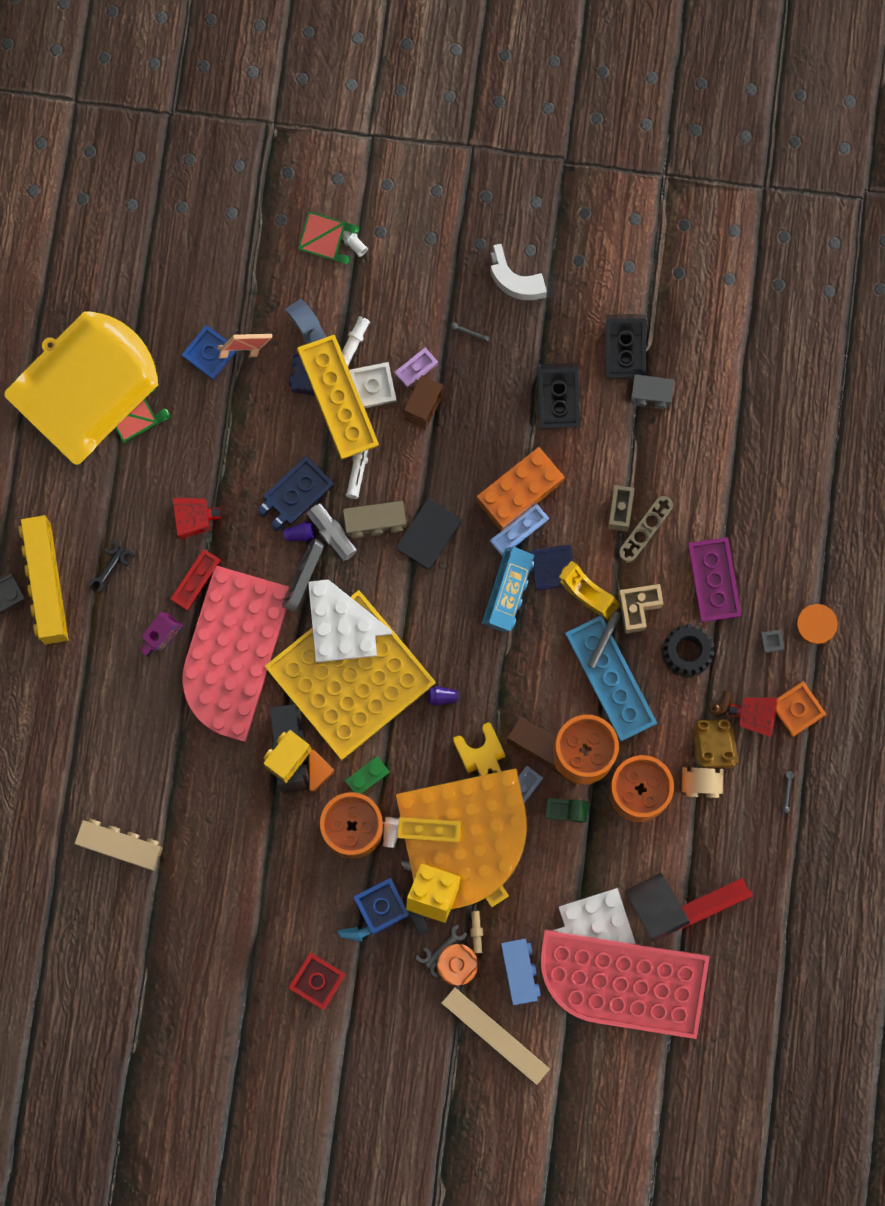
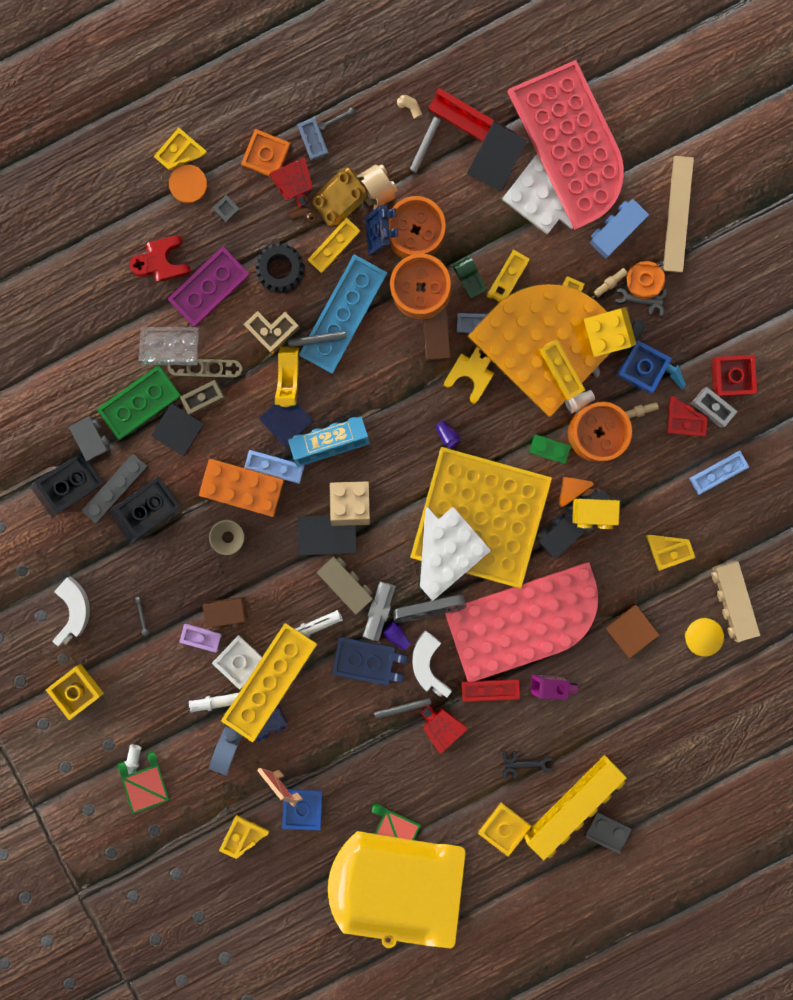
camera: 125 degrees left, 10 degrees up
(67, 510) = (504, 829): none -> yellow tile
(107, 797) = (704, 637): none -> yellow dish
(157, 737) = (632, 631): none -> dark orange tile
(204, 819) = (669, 550): none -> yellow wing
(223, 287) = (241, 837): none -> yellow wing
(233, 495) = (402, 708): none -> dark grey bar
(241, 911) = (719, 472): none -> light blue tile
(258, 535) = (421, 658): none -> white arch
(302, 944) = (713, 407): none -> light grey brick
(309, 913) = (685, 420): none -> red wing
(345, 878) = (640, 410): none -> tan bar
(441, 569) = (349, 503): none -> tan brick
(445, 233) = (74, 691): none -> yellow brick
(489, 437) = (217, 541): none -> dark tan piece
(544, 845) = (508, 276): none -> yellow plate
(595, 383) = (114, 488): none -> dark grey plate
(608, 469) = (177, 429): none -> black tile
(654, 454) = (139, 402): none -> green tile
(661, 753) = (378, 230): none -> dark blue tile
(676, 711) = (334, 245): none -> yellow plate
(685, 510) = (169, 346): none -> clear plate
(711, 853) = (425, 144): none -> light grey bar
(757, 865) = (411, 103): none -> tan arm
(766, 551) = (156, 261): none -> red piece
(783, 758) = (313, 139): none -> sand blue plate
(851, 635) = (179, 150): none -> yellow wing

